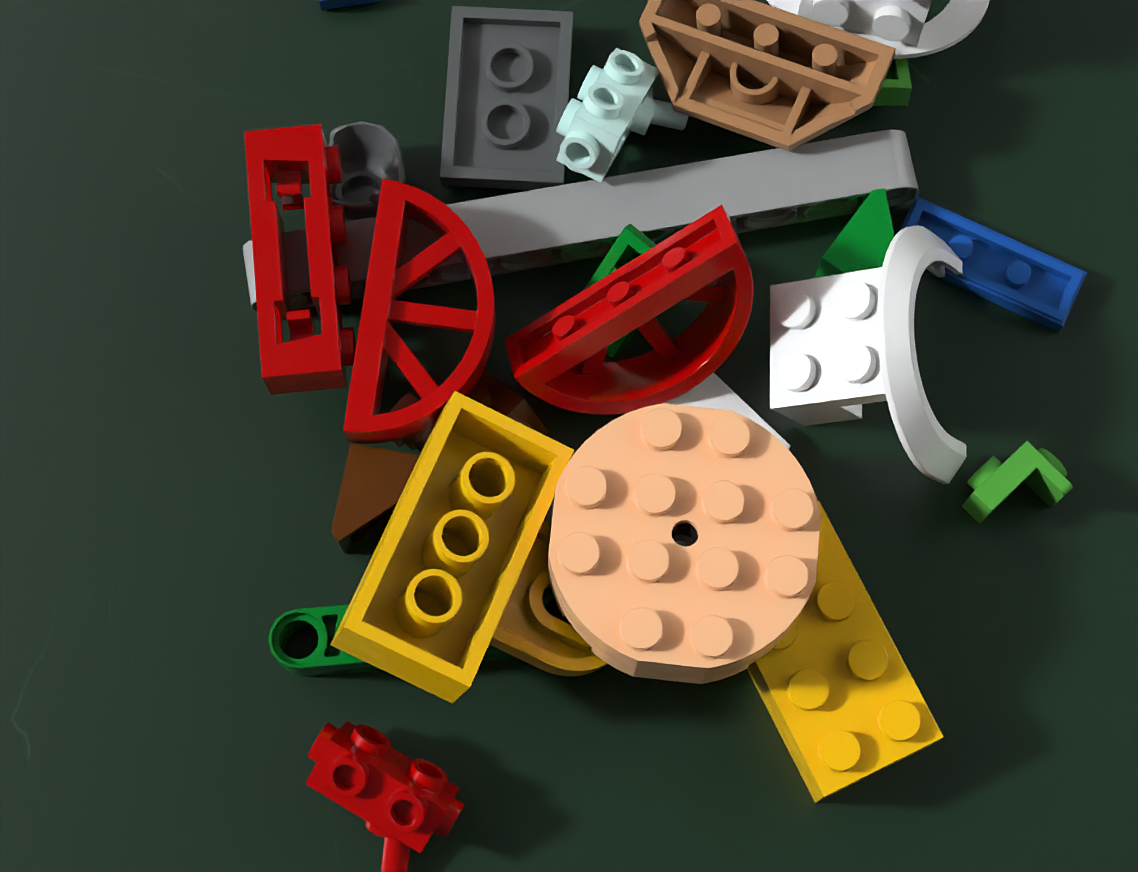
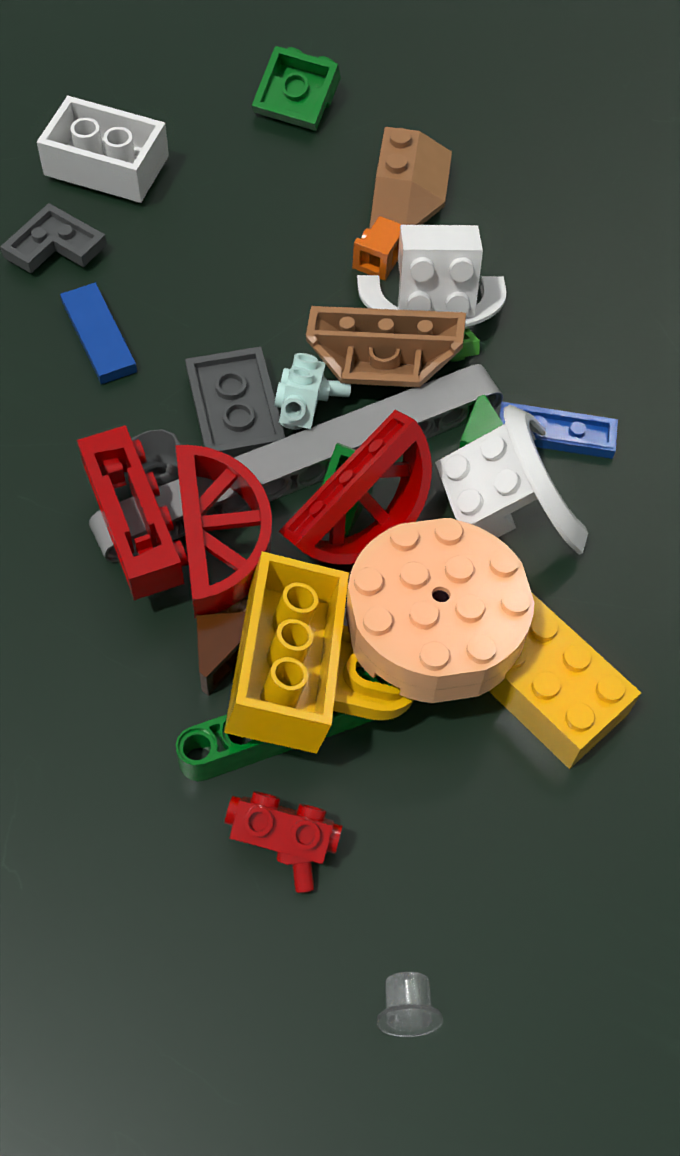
camera: 20 degrees left, 15 degrees down
(996, 481) = (629, 532): bright green bracket -> none

